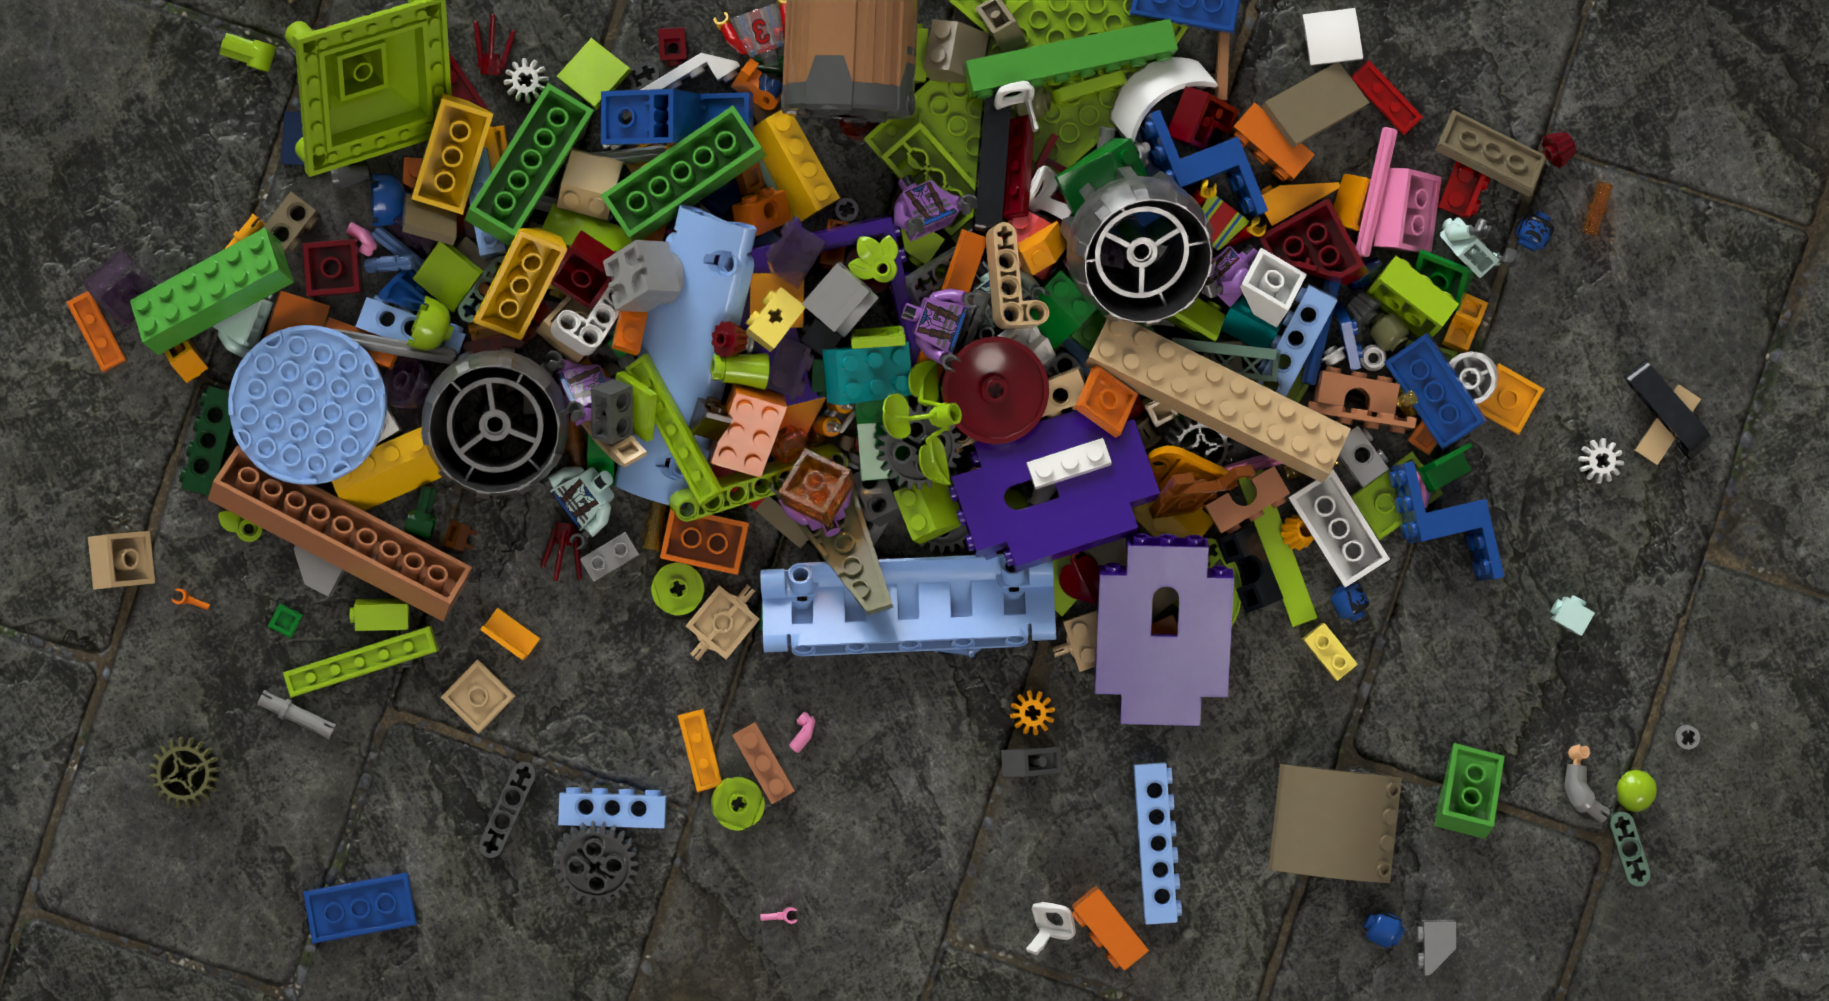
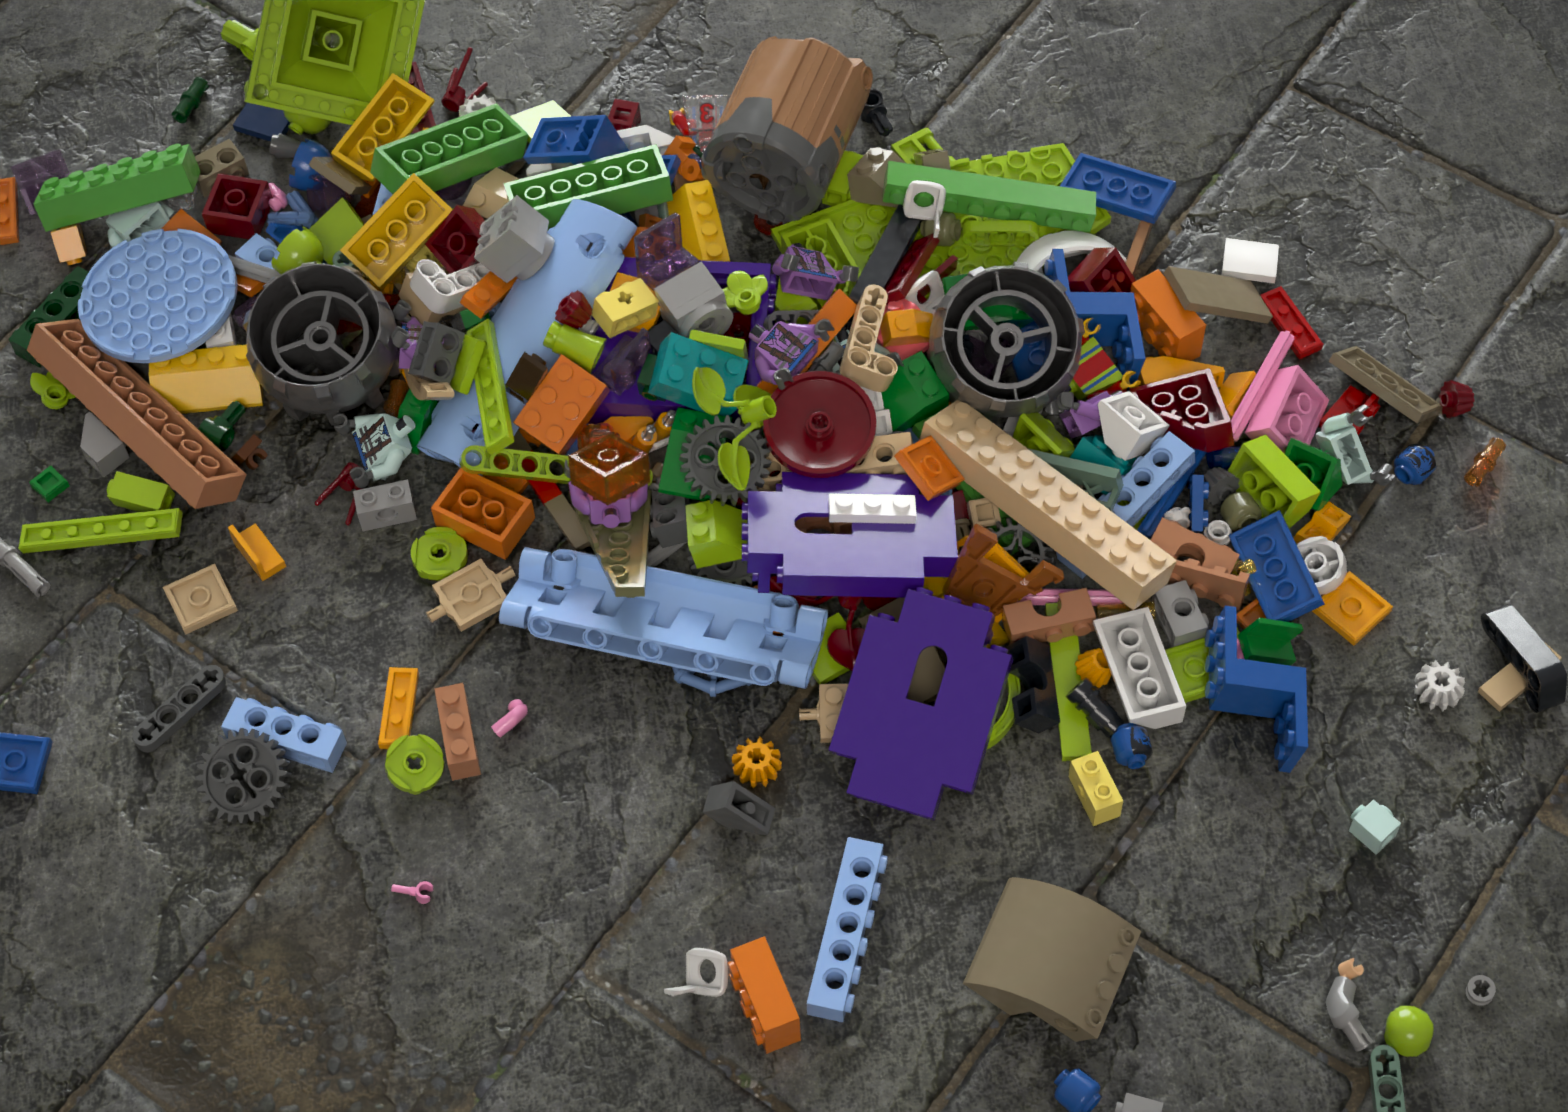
camera: 20 degrees right, 30 degrees down
(223, 144) = (190, 100): none -> dark green pin
(655, 526) = (437, 490): clear yellow pin -> none
(1313, 577) = (1096, 708): none -> black axle
(1470, 791) = (1214, 975): bright green slope -> none

